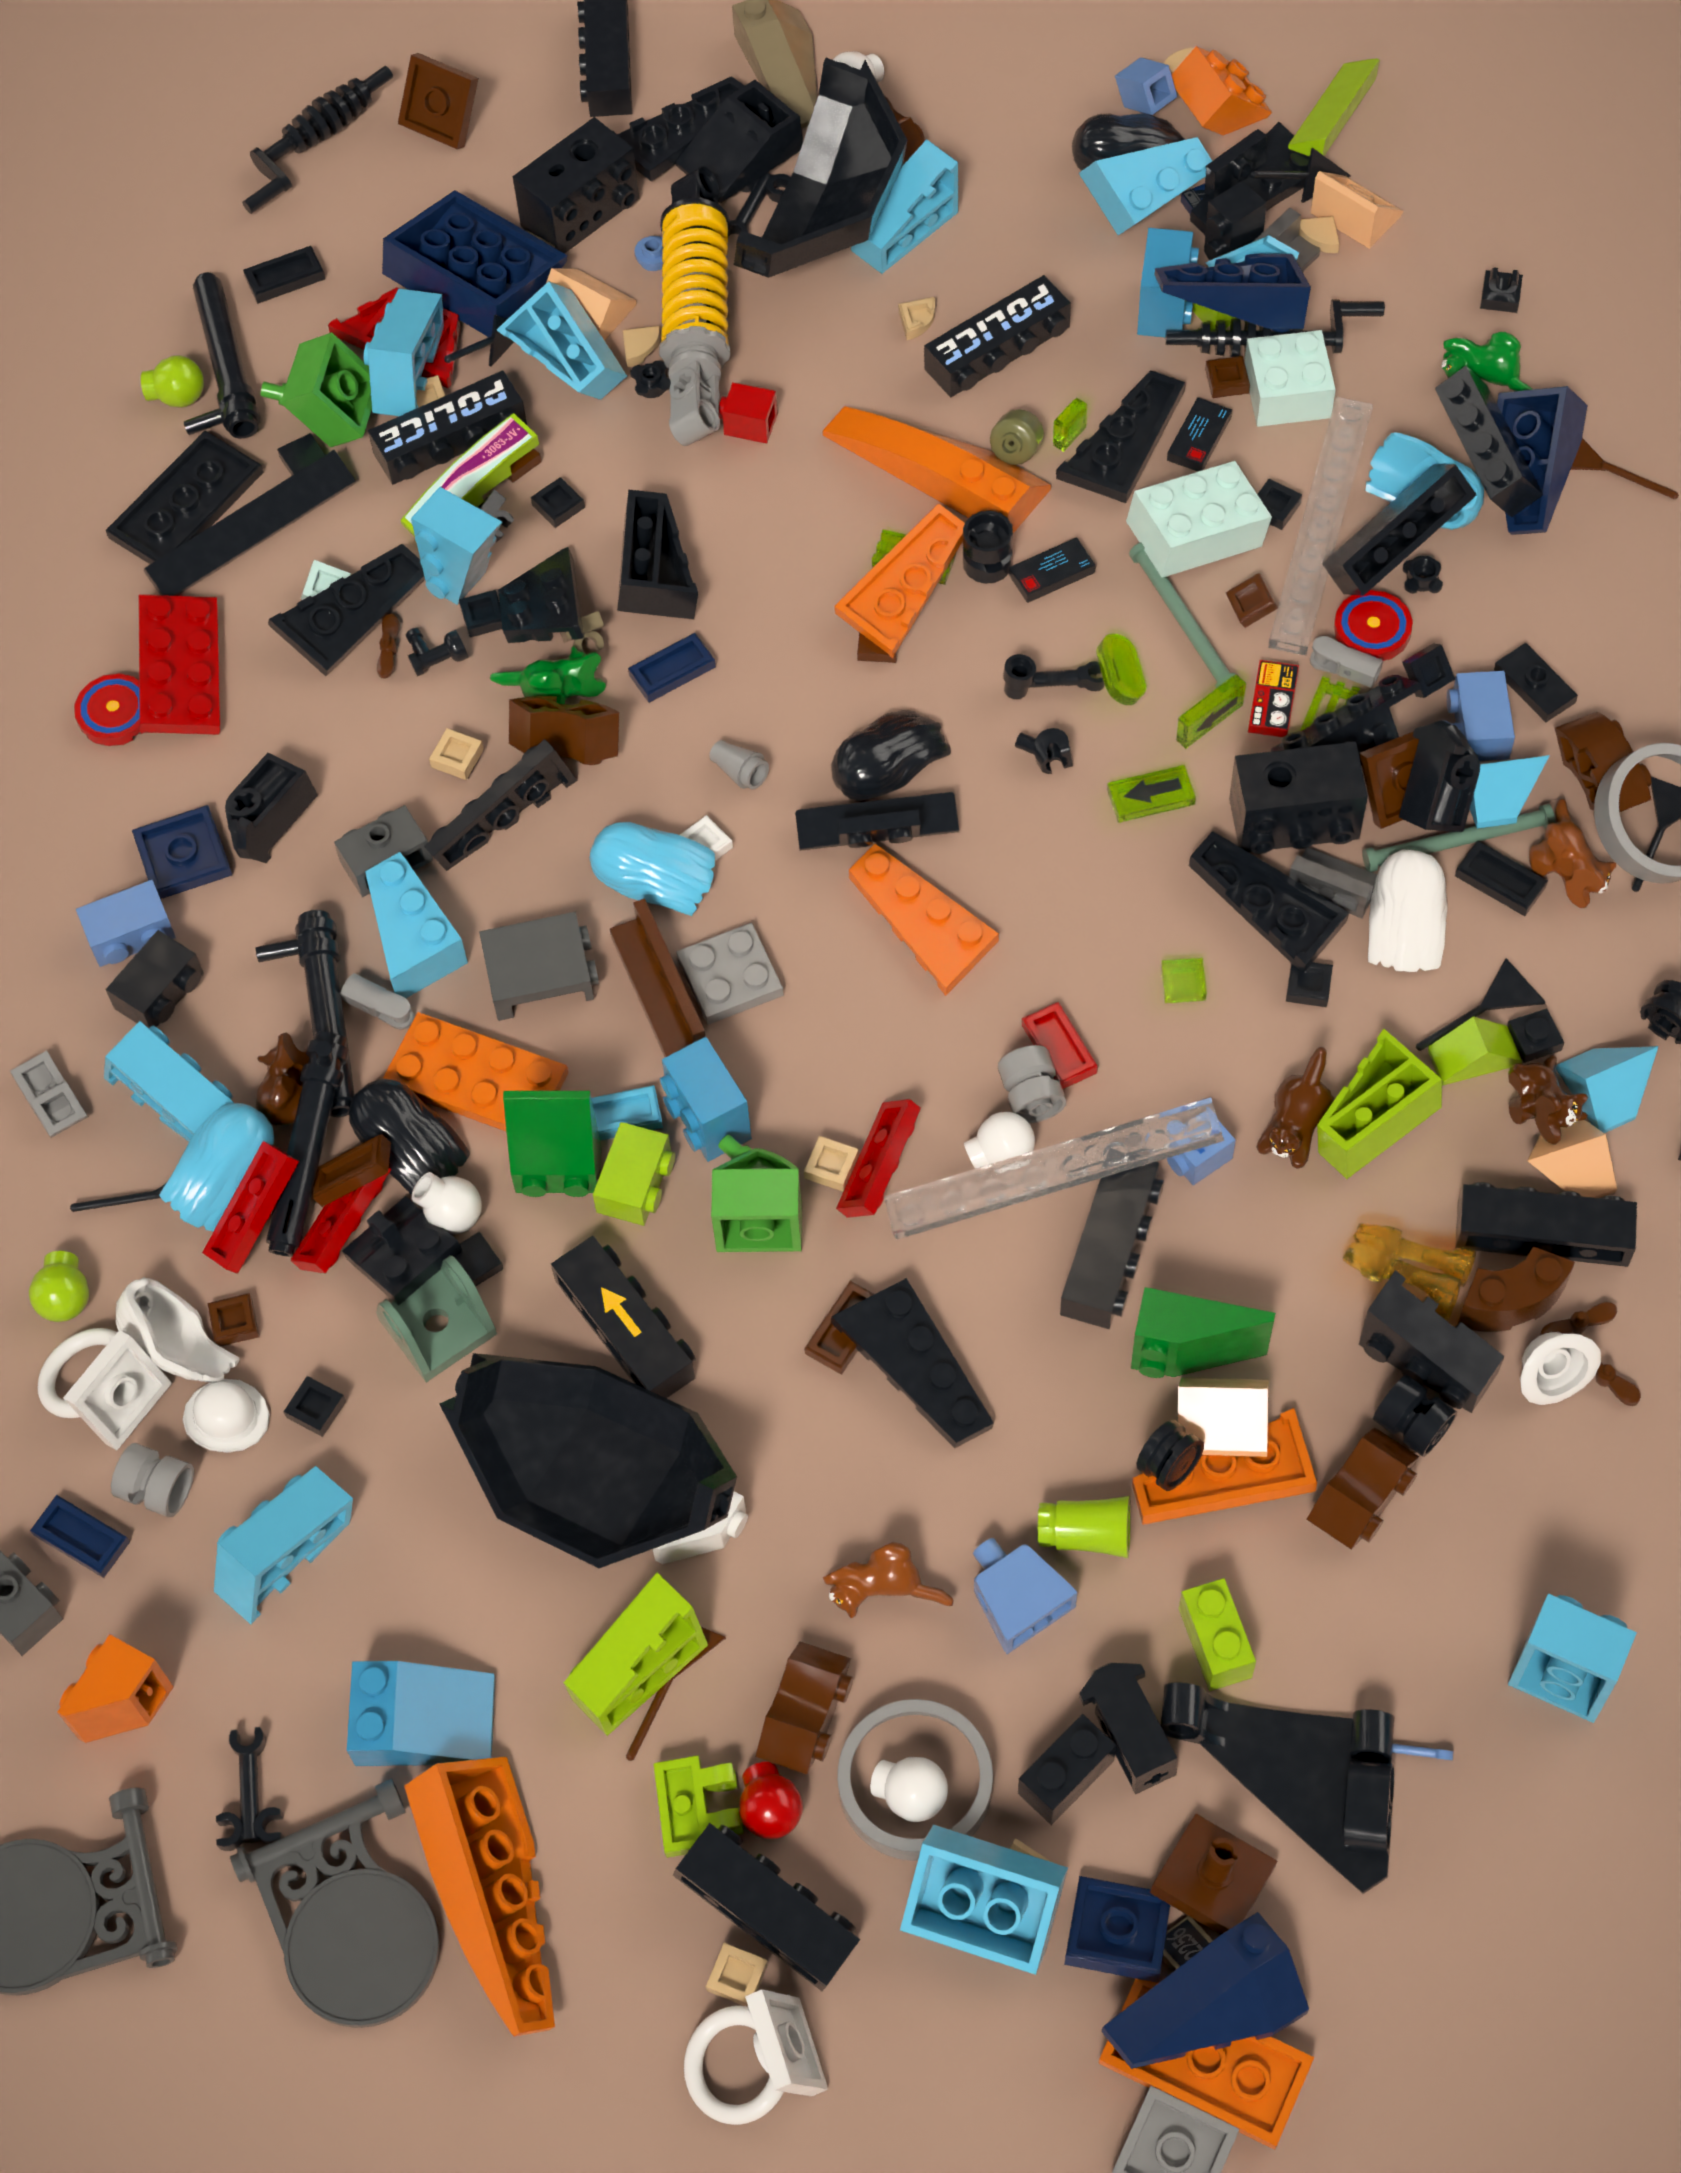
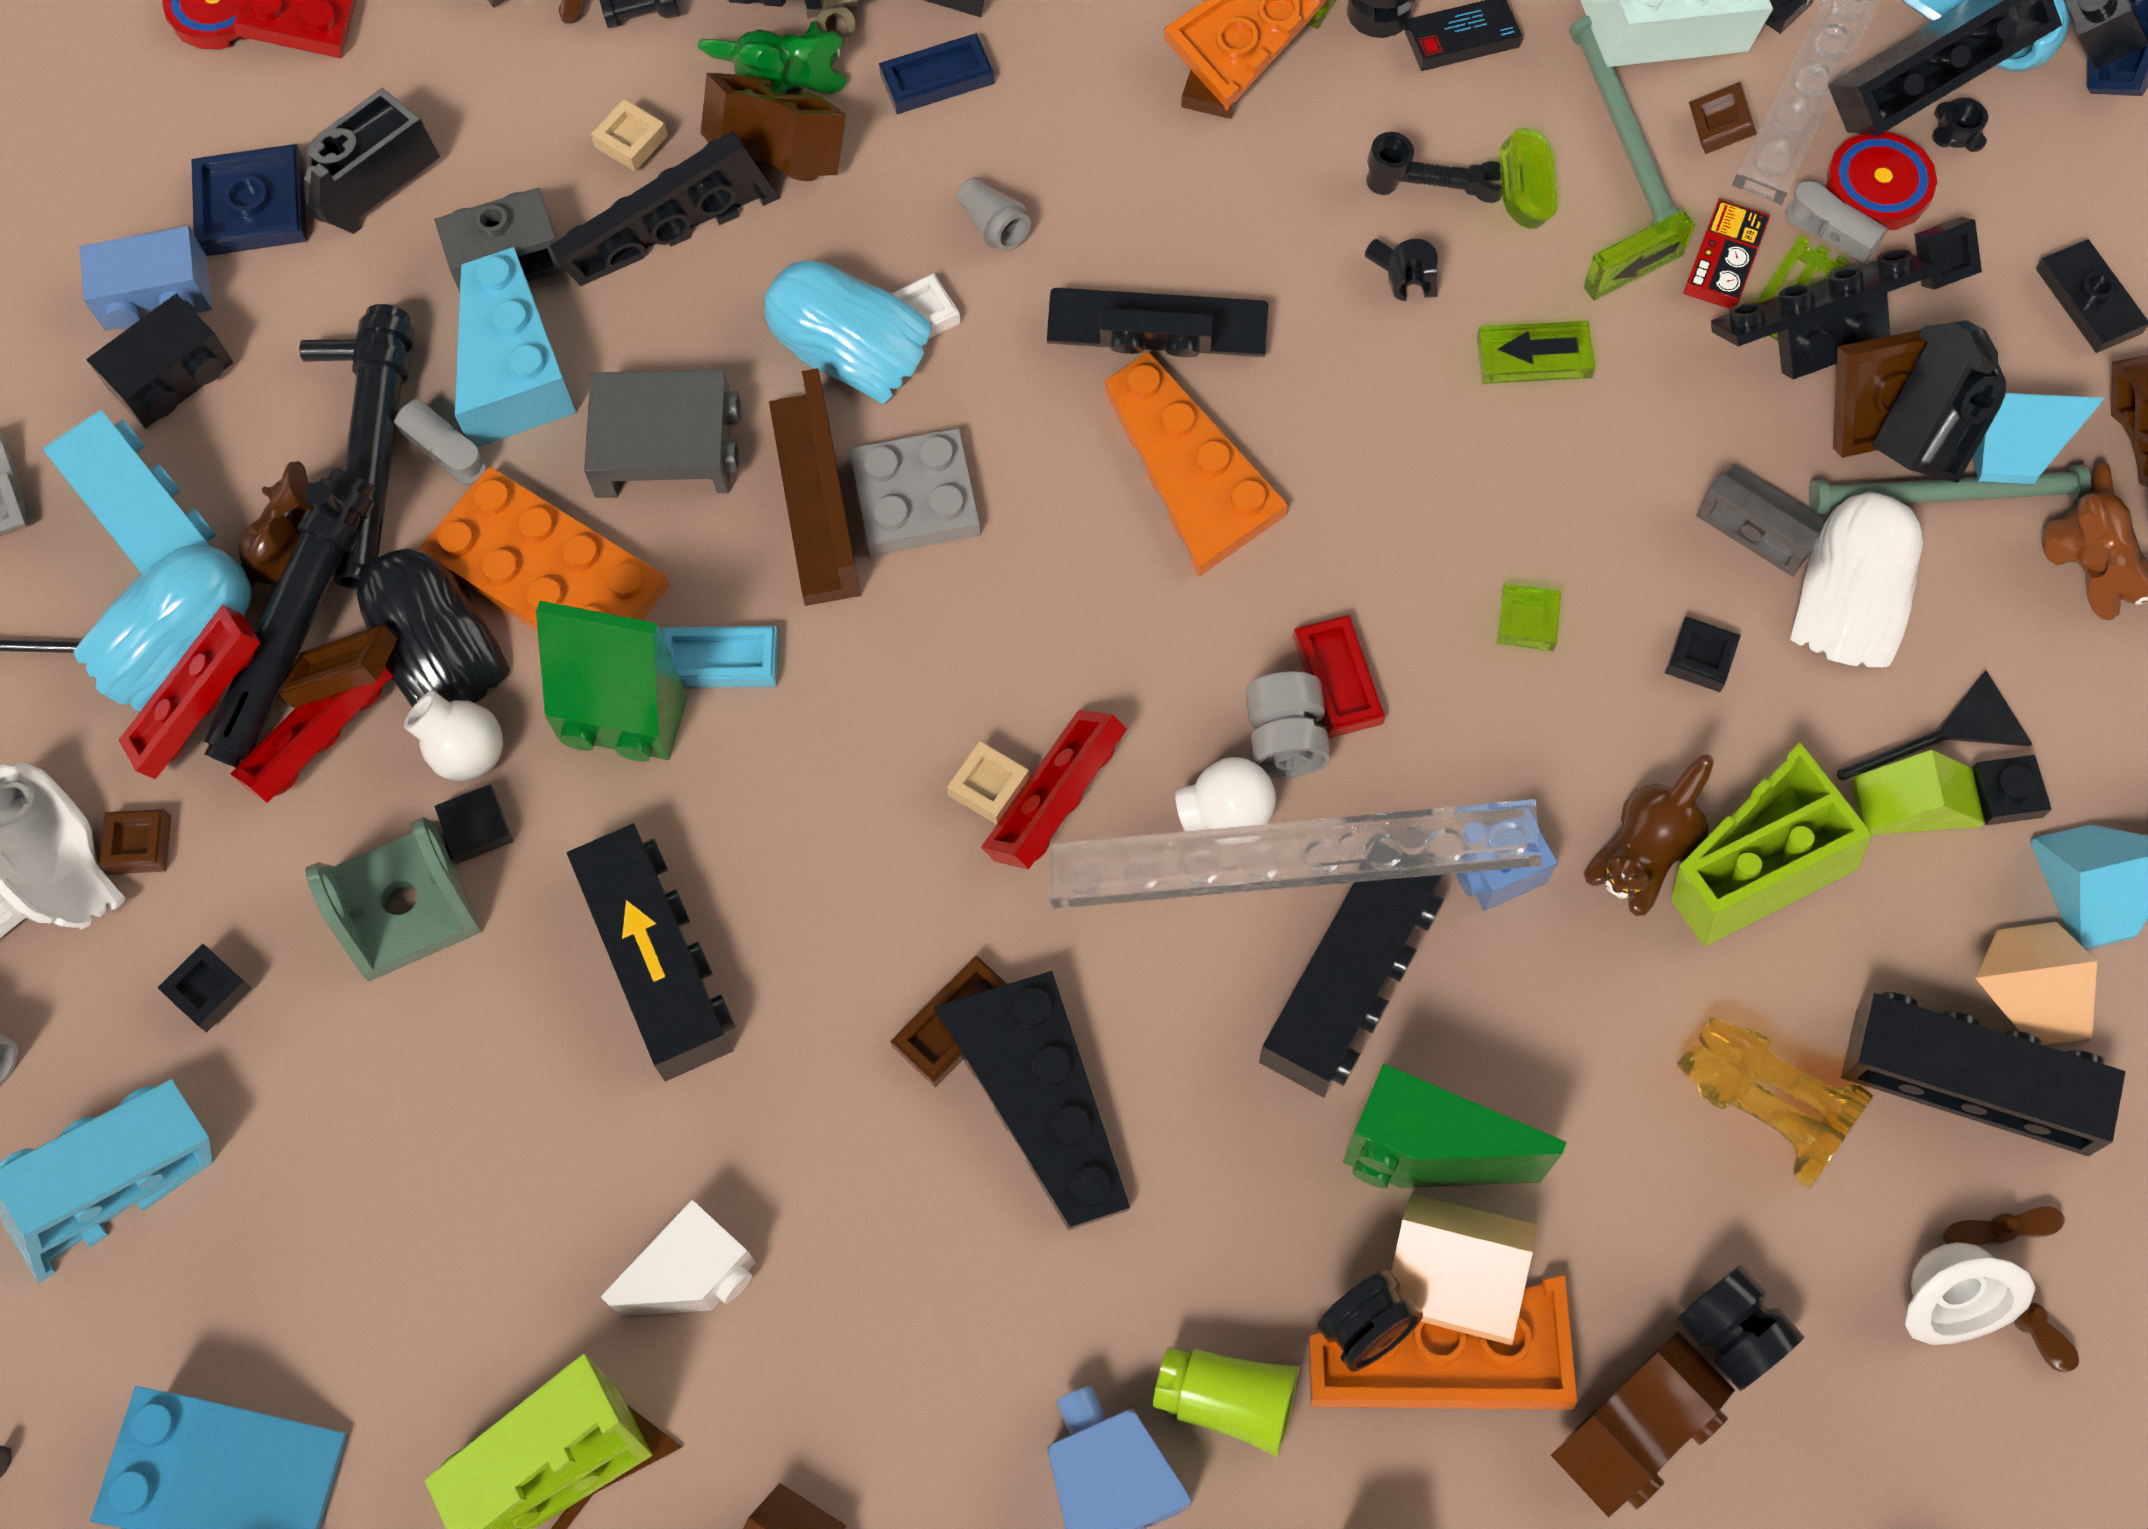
camera: 10 degrees right, 5 degrees up
(226, 1416) = (88, 976): white hat -> none
(401, 1250) = (377, 790): black hinge -> none
(587, 1457) = (542, 1149): black panel -> none
(633, 1174) = (715, 744): lime brick -> none
(704, 1098) = (831, 661): dark azure brick -> none
(755, 1201) = (866, 817): bright green piece -> none
(885, 1574) = (927, 1408): dark orange animal -> none
(887, 754) = (1190, 236): black hair -> none
(1277, 906) = (1677, 537): black wing -> none
(1298, 797) = (1738, 392): black piece -> none
(1428, 1347) = (1781, 1229): black wedge -> none
(1483, 713) = (2021, 319): medium blue brick -> none
(1501, 878) = (1999, 557): black tile -> none
(1515, 1294) = (1920, 1173): reddish brown brick -> none
(1543, 1099) = (2012, 889): reddish brown animal -> none

